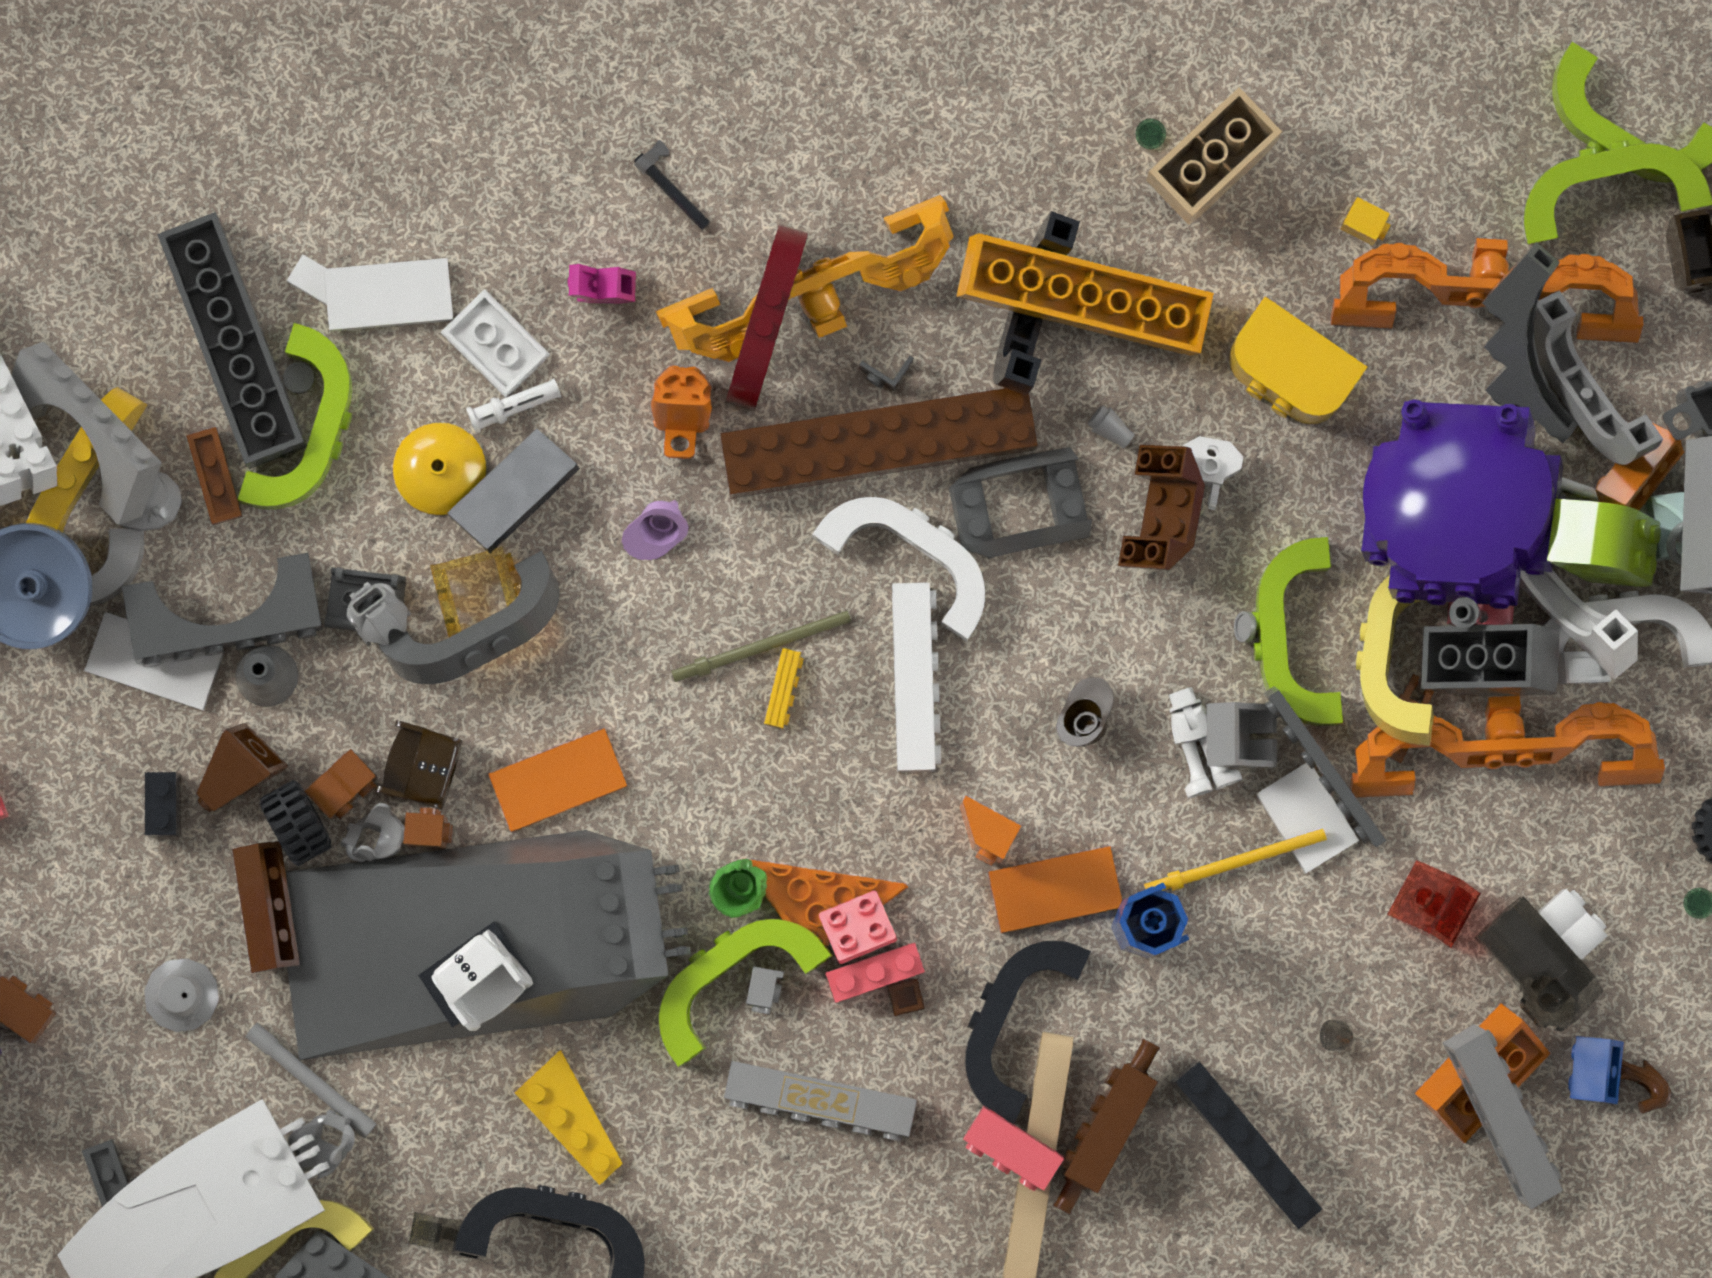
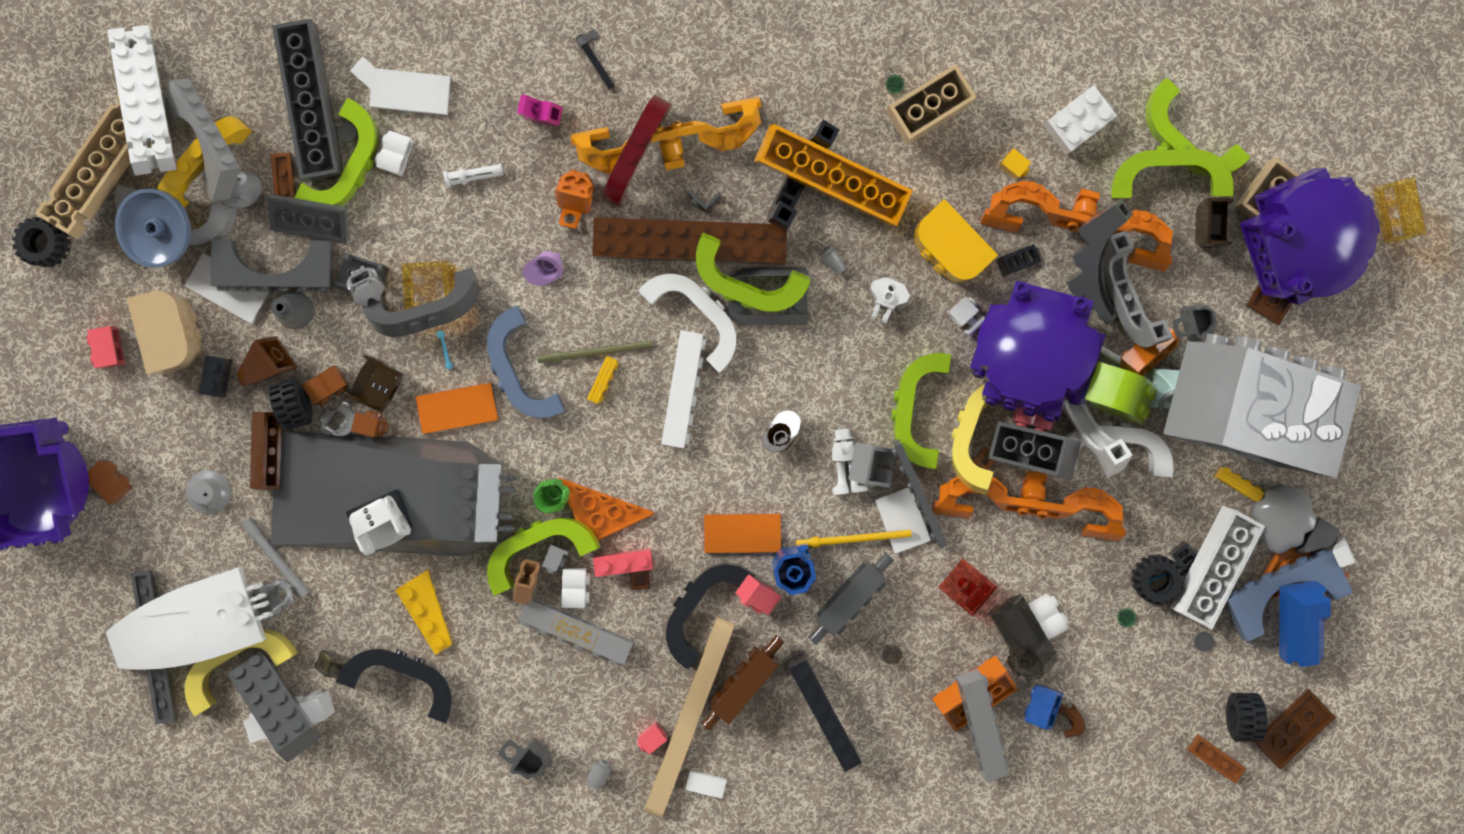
camera: 15 degrees right, 5 degrees up
(73, 747) = (165, 331): none -> tan brick
(265, 524) = (308, 218): none -> dark grey tile
(382, 395) = (394, 153): none -> white brick
(438, 490) = (434, 207): yellow dish -> none
(495, 343) = (469, 134): white tile -> none
(508, 668) = (440, 334): none -> medium azure hinge
(513, 491) = (462, 227): tile -> none
(605, 639) = (502, 366): none -> sand blue arch
(726, 1033) = (526, 581): none -> medium nougat brick
(804, 1030) = (574, 587): none -> white brick
(857, 927) = (618, 534): coral bracket -> none
(977, 1250) = (651, 738): none -> coral brick
(987, 831) = (707, 493): orange slope -> none
(988, 507) = (746, 294): none -> lime arch
(1012, 1149) = (683, 686): coral brick -> none
(1102, 980) = (758, 595): none -> coral brick
(1170, 508) = (858, 319): reddish brown slope -> none
(1245, 626) = (889, 398): light grey piece -> none
(1249, 955) = (850, 597): none -> dark grey brick
(1335, 469) = (963, 313): none -> white brick
(1387, 380) = (1007, 265): none -> black slope
(1452, 133) = (1080, 120): none -> white brick
(1466, 613) = (1026, 420): dark grey cone -> none
(1580, 668) = (1087, 464): white tile -> none

